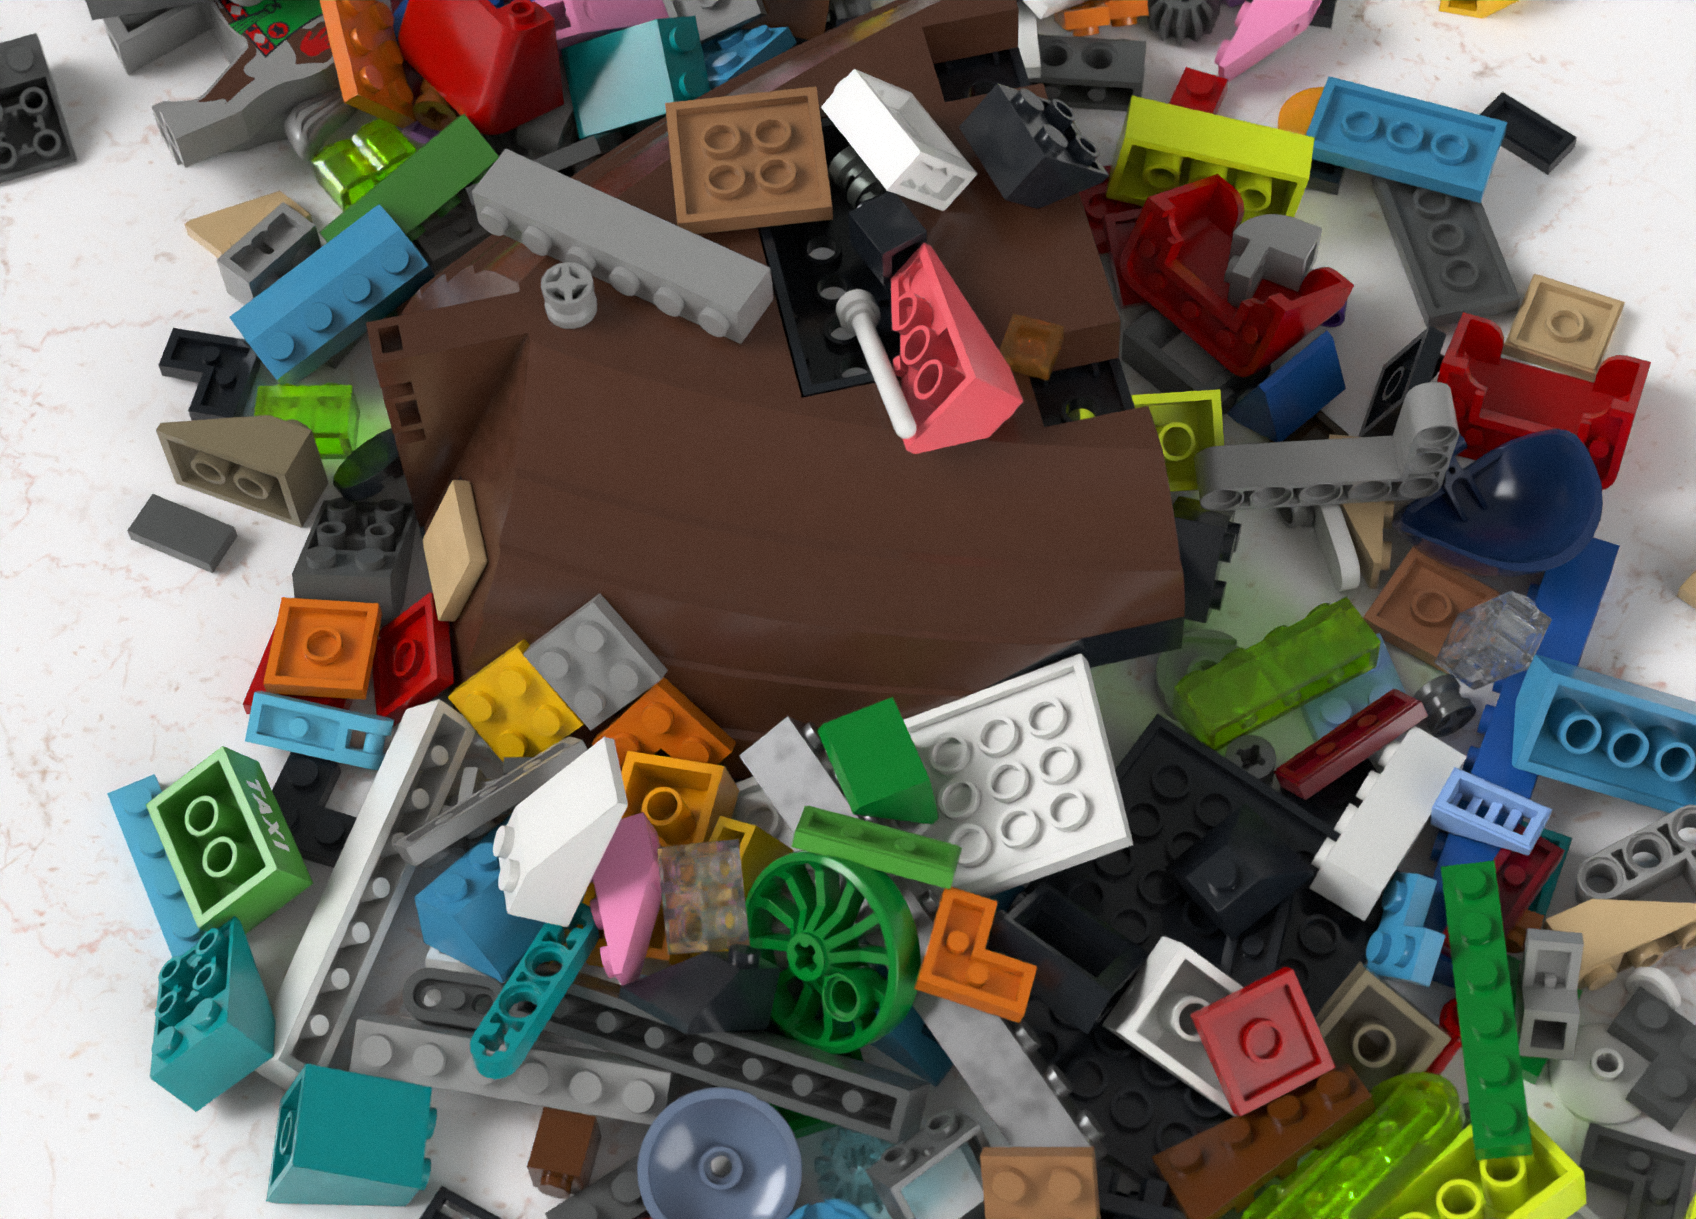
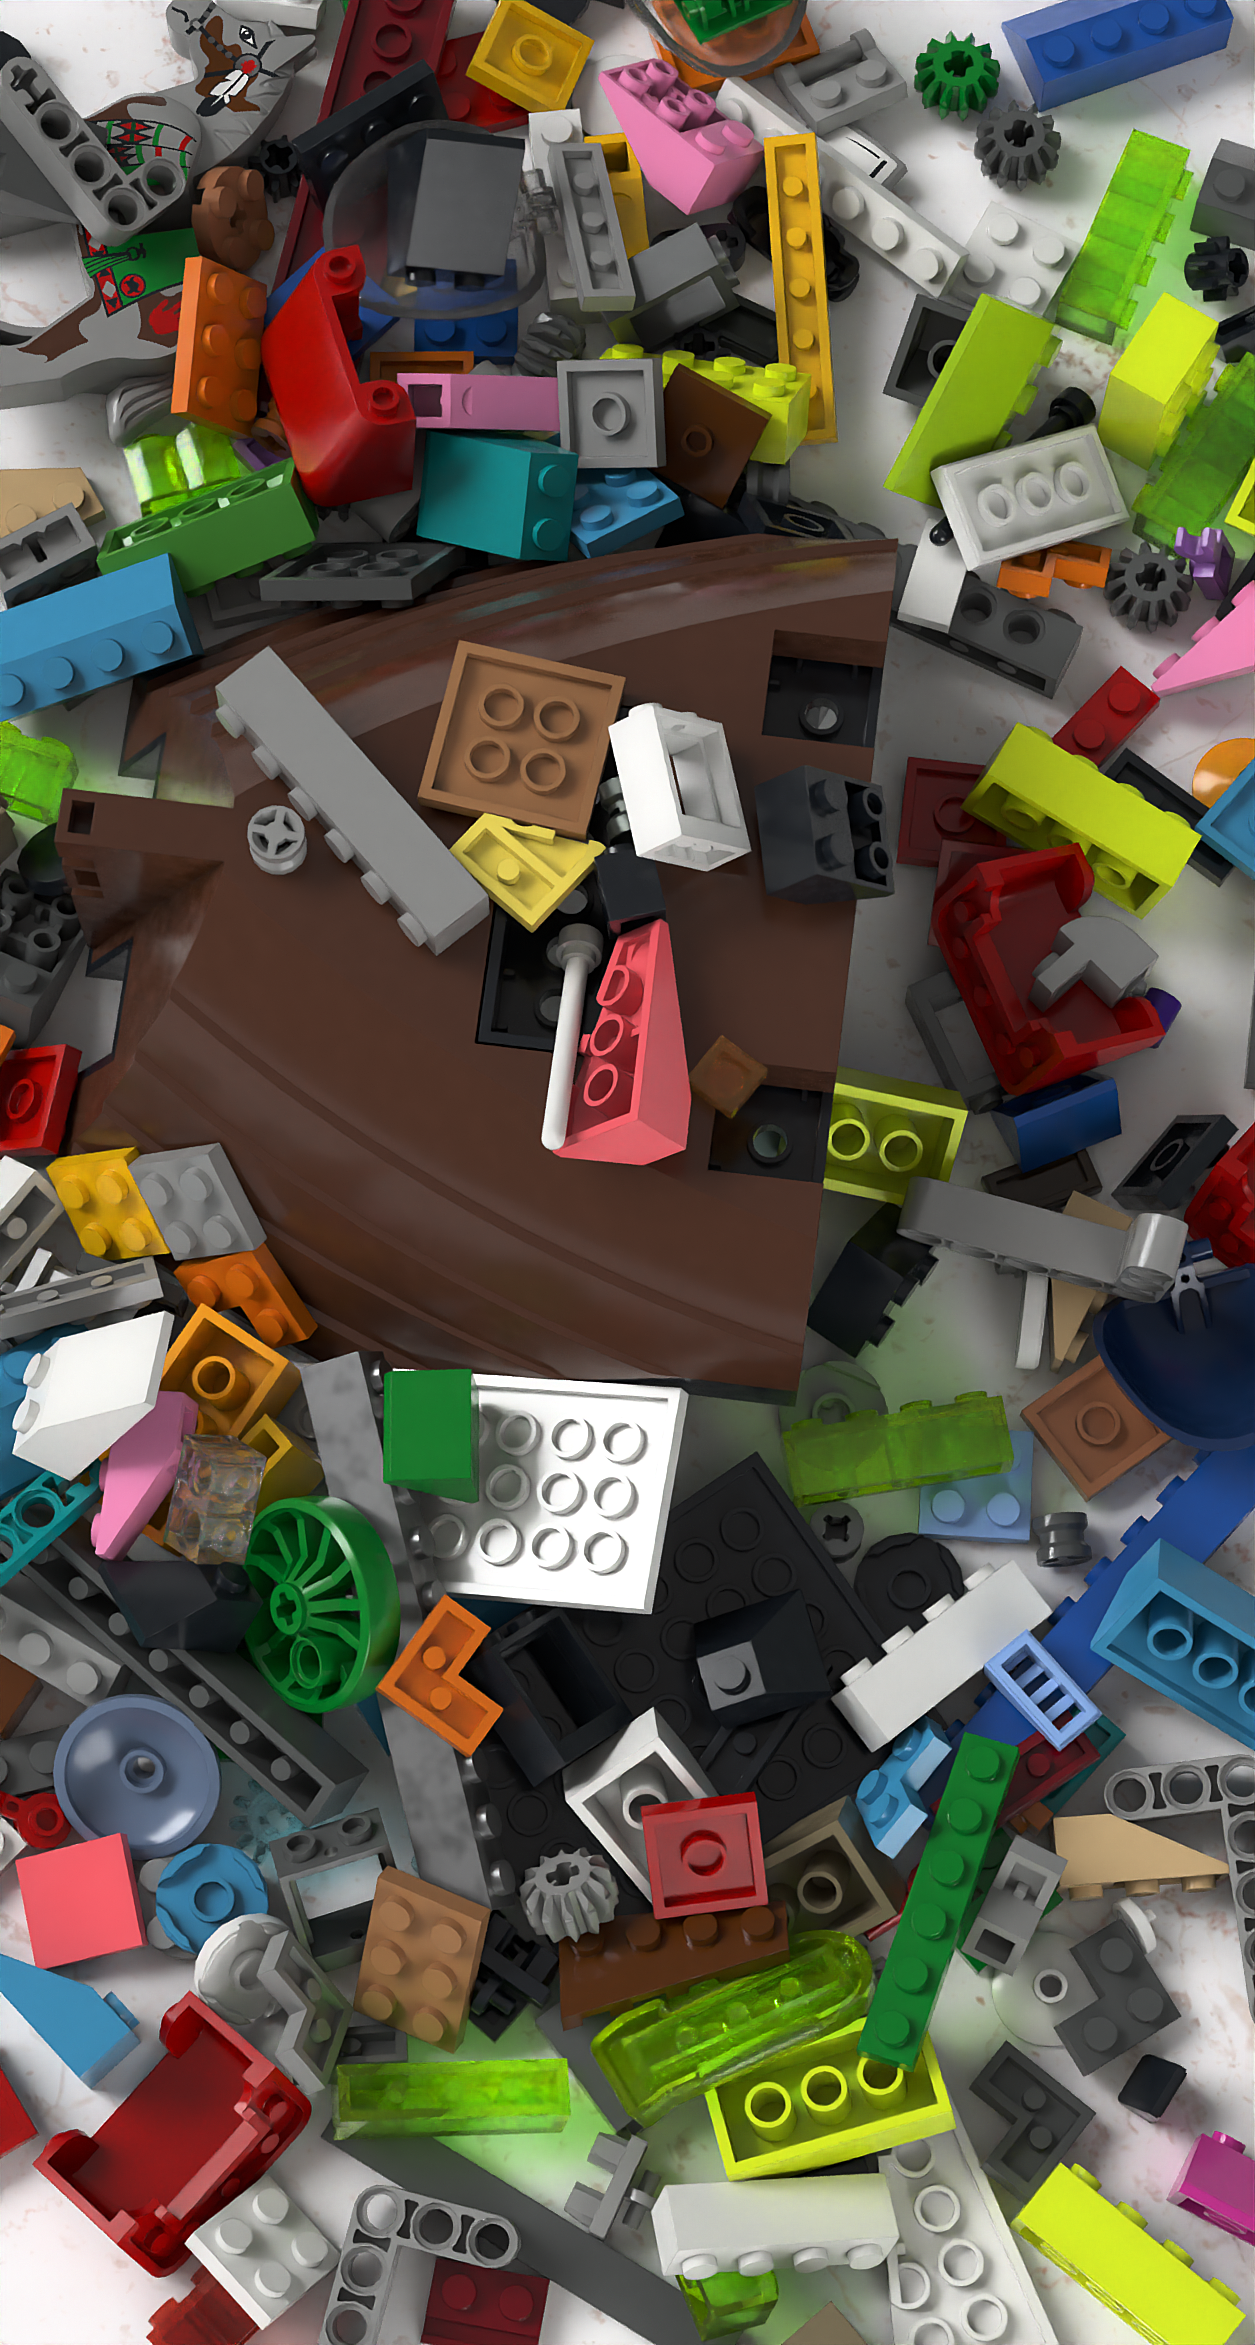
camera: 15 degrees right, 15 degrees up
(454, 550) = (101, 1017): tan tile -> none
(793, 247) = (524, 867): none -> light yellow wing
(877, 846) = (392, 1529): bright green tile -> none
(1155, 1123) = (569, 1895): none -> light grey gear
(1350, 743) = (942, 1553): dark red tile -> none
(1493, 640) = (1133, 1498): clear brick -> none

